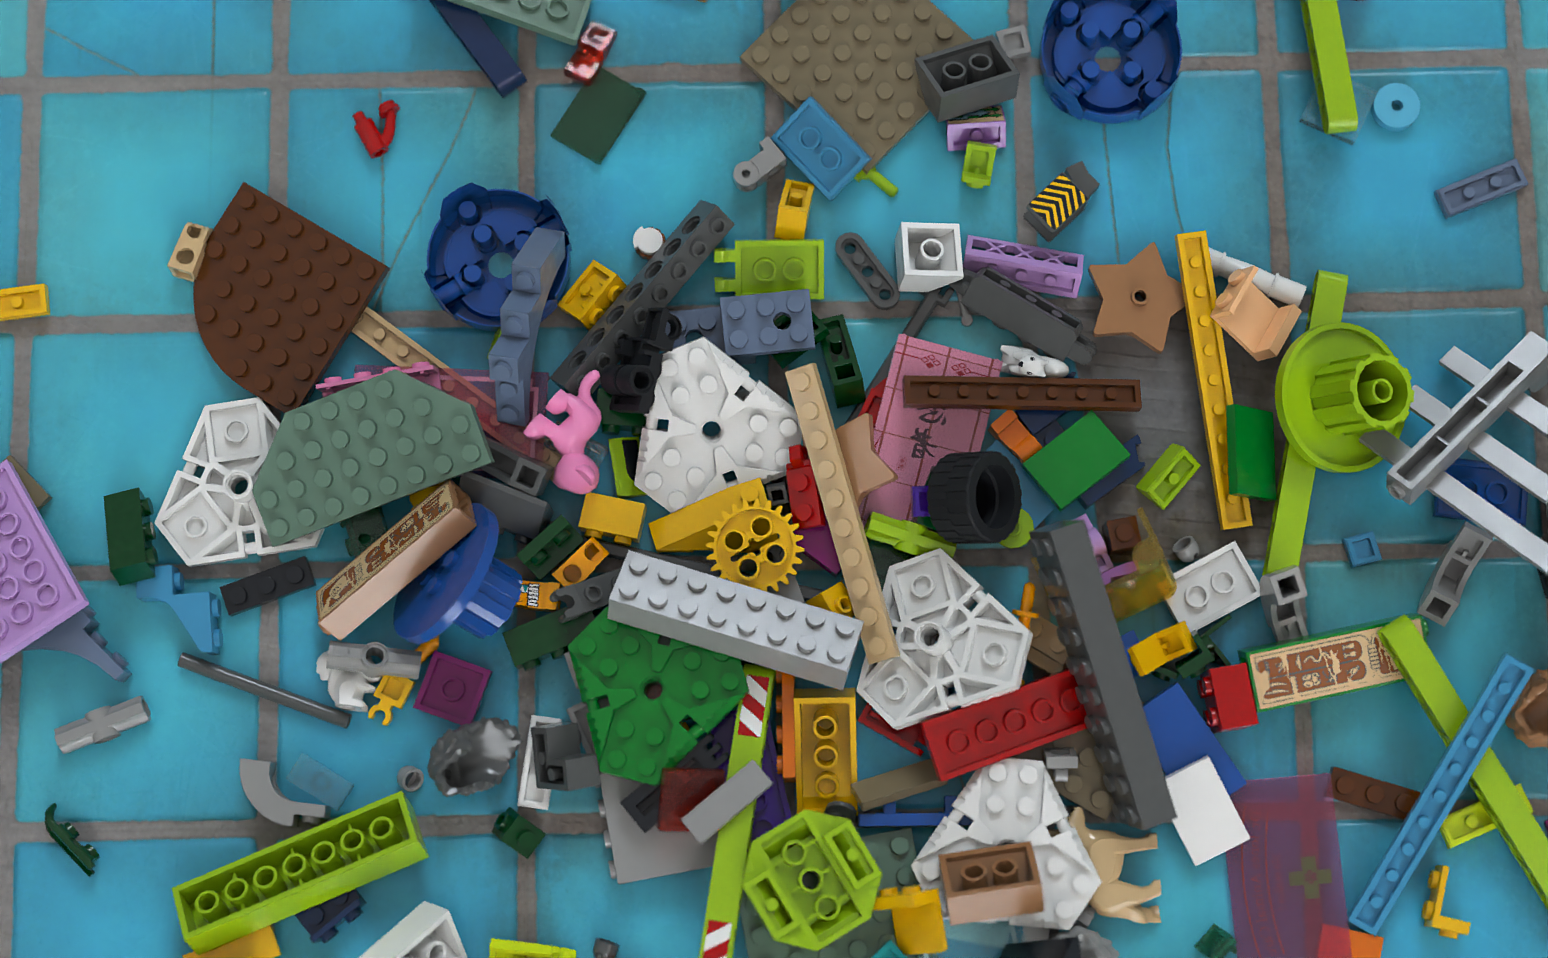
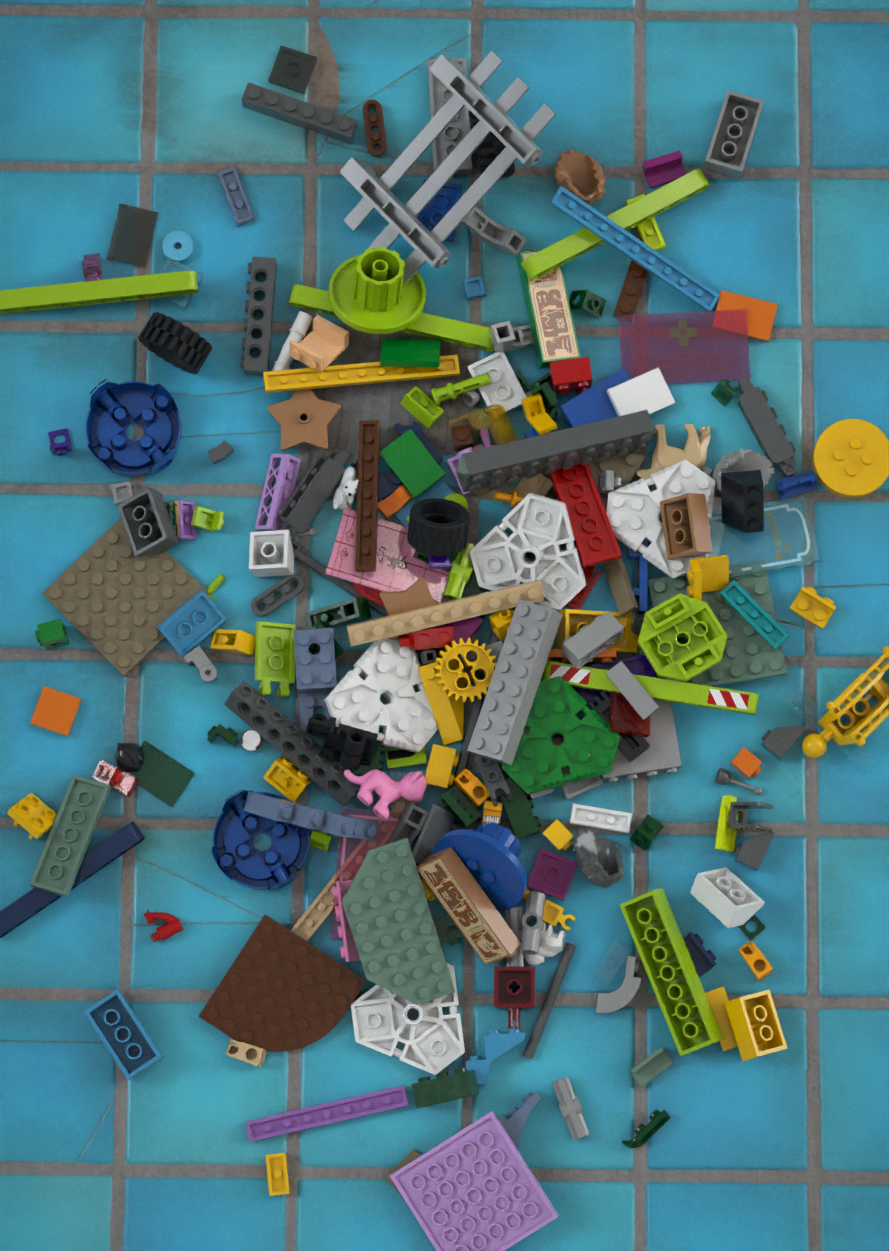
camera: 90 degrees left, 0 degrees up
(103, 370) = (326, 1113): none -> medium lavender plate
(164, 845) = (651, 1067): none -> sand green panel
(216, 78) = (123, 1034): none -> dark azure brick
(262, 625) = (514, 1002): none -> dark red brick
(268, 586) = (479, 999): black plate -> none
(368, 631) = (513, 918): none -> light grey piece
(410, 778) = (609, 903): light grey hinge -> none
(509, 697) = (558, 836): none -> yellow brick
(560, 760) = (602, 801): dark grey brick -> none
(622, 72) = (129, 757): none -> black hat
(656, 205) = (227, 734): none -> dark green bracket
(806, 739) = (592, 639): none -> light grey brick
(1056, 207) = (239, 469): piece -> none
(1195, 519) = (451, 390): none -> lime pin
(1243, 99) = (175, 343): none -> black tyre
(1281, 237) = (267, 268): none -> dark grey brick
(1348, 725) = (588, 302): none -> dark green bracket
(1408, 41) = (132, 235): none -> clear smoke piece
(1431, 909) = (703, 259): yellow bracket -> none

